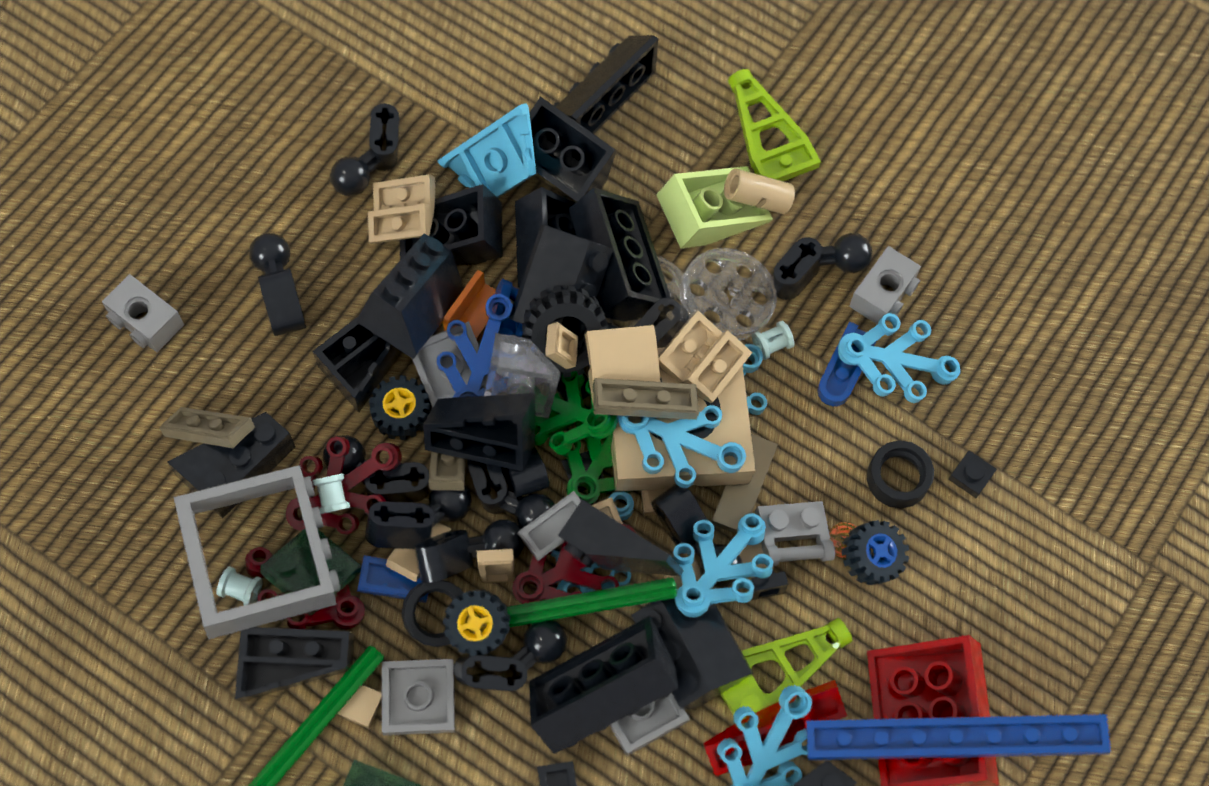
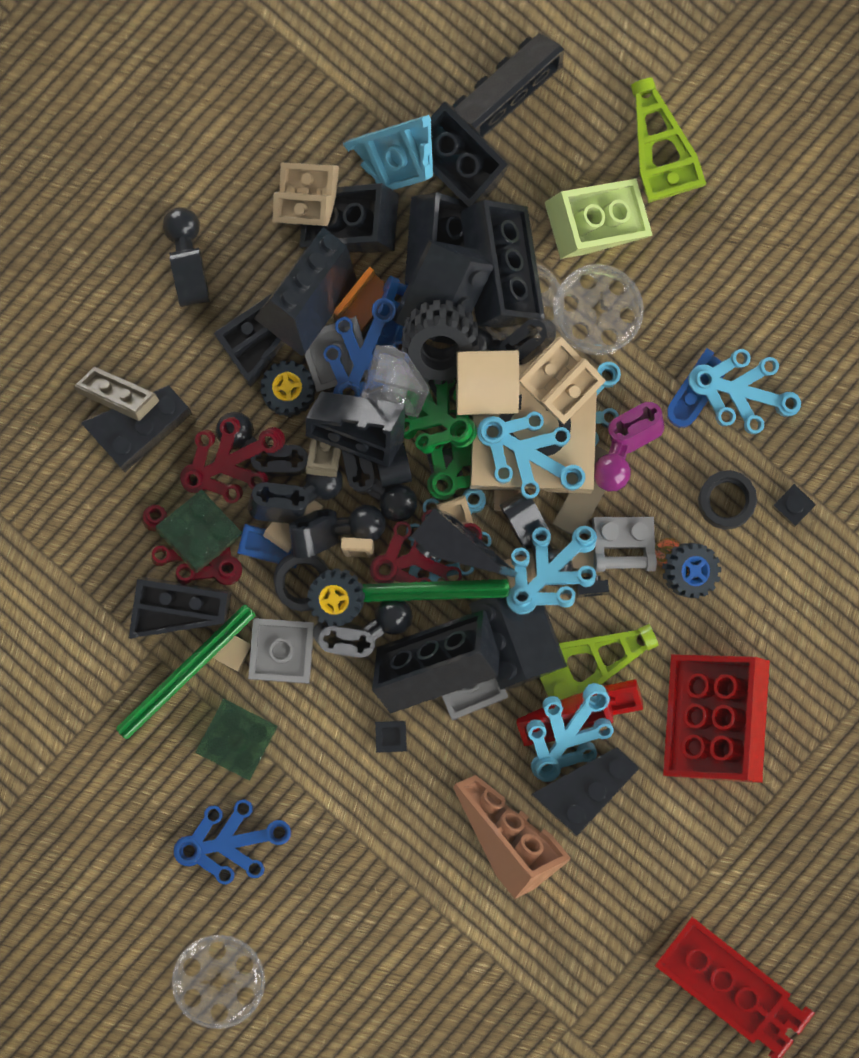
camera: 20 degrees right, 15 degrees up
(135, 298) = (54, 258): light grey brick -> none
(239, 586) = (136, 538): light aqua bush -> none
(271, 609) = (165, 569): light grey window -> none
(331, 493) = (221, 468): light aqua bush -> none
(352, 174) = (262, 153): black beam -> none
(542, 533) = (406, 520): light grey tile -> none
(561, 345) = (434, 360): tan tile -> none
(645, 399) = (502, 418): dark tan tile -> none
(759, 191) = (641, 211): tan pin -> none
(780, 416) = (612, 469): none -> magenta beam
(782, 336) = (643, 360): light aqua bush -> none
(791, 274) = (717, 281): black beam -> none
(890, 270) = (753, 301): light grey brick -> none
(958, 737) = (727, 743): blue plate -> none

